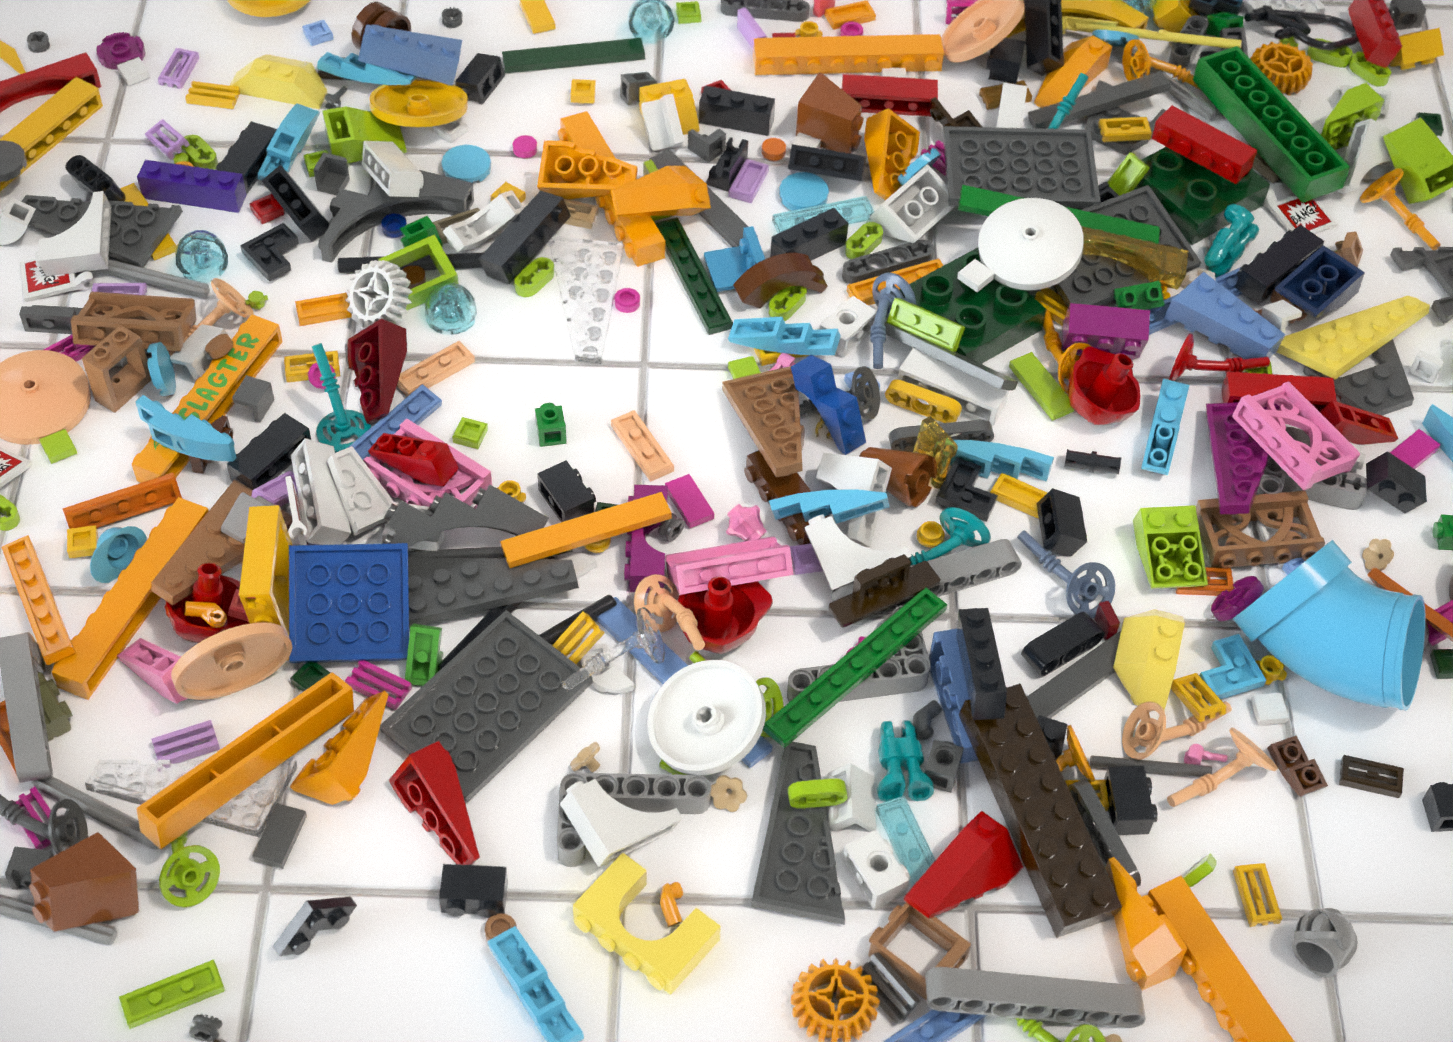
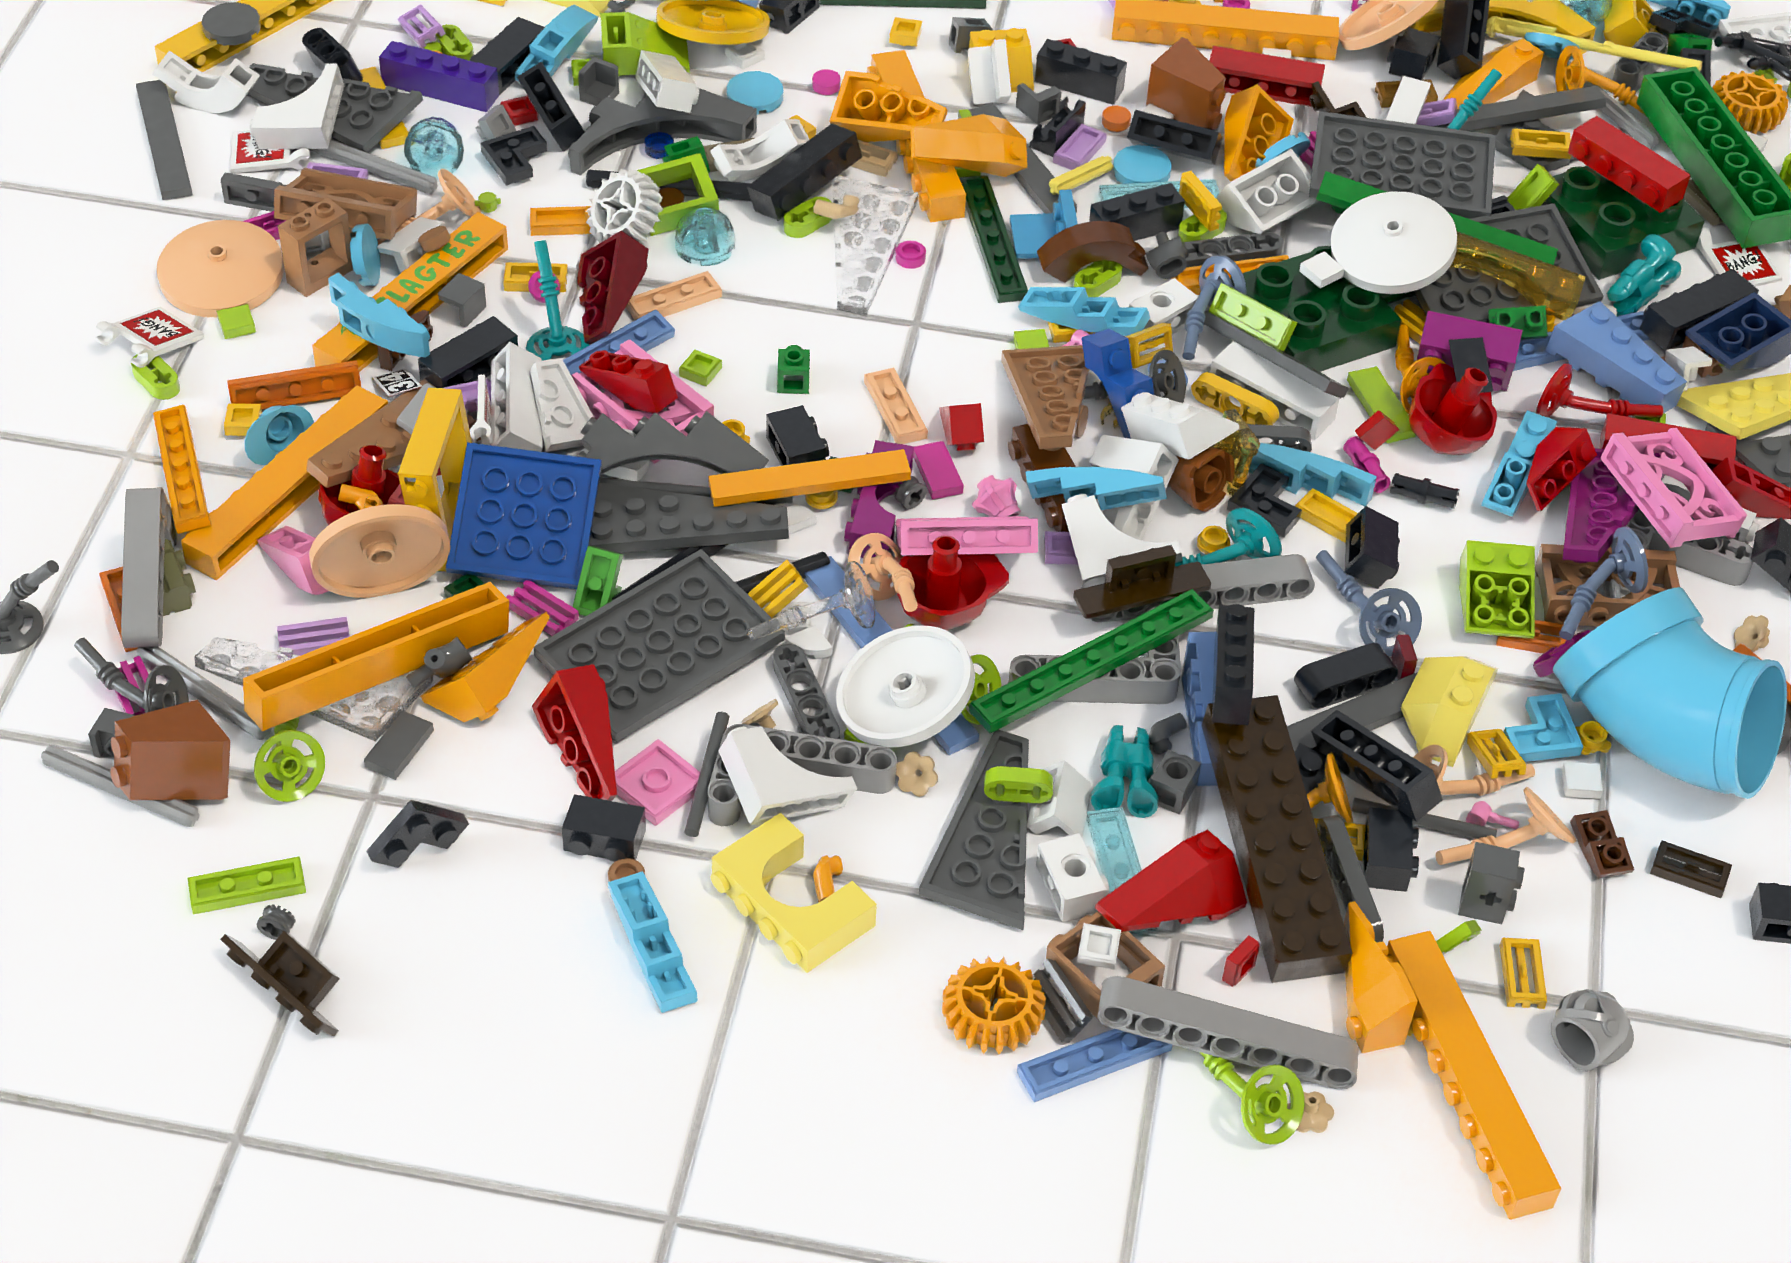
camera: 10 degrees right, 5 degrees down
(211, 485) = (397, 382): none -> sticker
(249, 225) = (495, 123): none -> light grey tile
(303, 755) = (441, 662): none -> dark grey piece
(510, 834) = (657, 781): none -> bright pink tile
(550, 848) = (701, 793): none -> dark grey bar
(560, 270) = (837, 211): none -> tan arm
(617, 736) = (801, 699): none -> dark grey beam
(703, 456) = (963, 425): none -> red slope
(755, 208) = (1081, 174): none -> light yellow axle
(843, 274) = (1168, 257): none -> dark grey piece
(843, 356) = (1135, 347): none -> yellow tile
(860, 220) = (1200, 200): none -> yellow tile
(883, 438) = (1175, 424): none -> white slope
(914, 936) = (1099, 946): none -> white tile
(1030, 925) = (1241, 961): none -> red tile
(1037, 112) = (1438, 112): none -> lavender tile
(1040, 442) = (1367, 462): none -> dark pink pin
(1044, 412) = (1376, 430): none -> red tile
(1109, 728) = (1378, 765): none -> black brick
(1110, 341) = (1470, 353): none -> black sticker
(1197, 422) = (1558, 462): none -> red slope
(1219, 821) = (1491, 883): none -> dark grey brick
(1269, 511) = (1621, 562): none -> sand blue dish

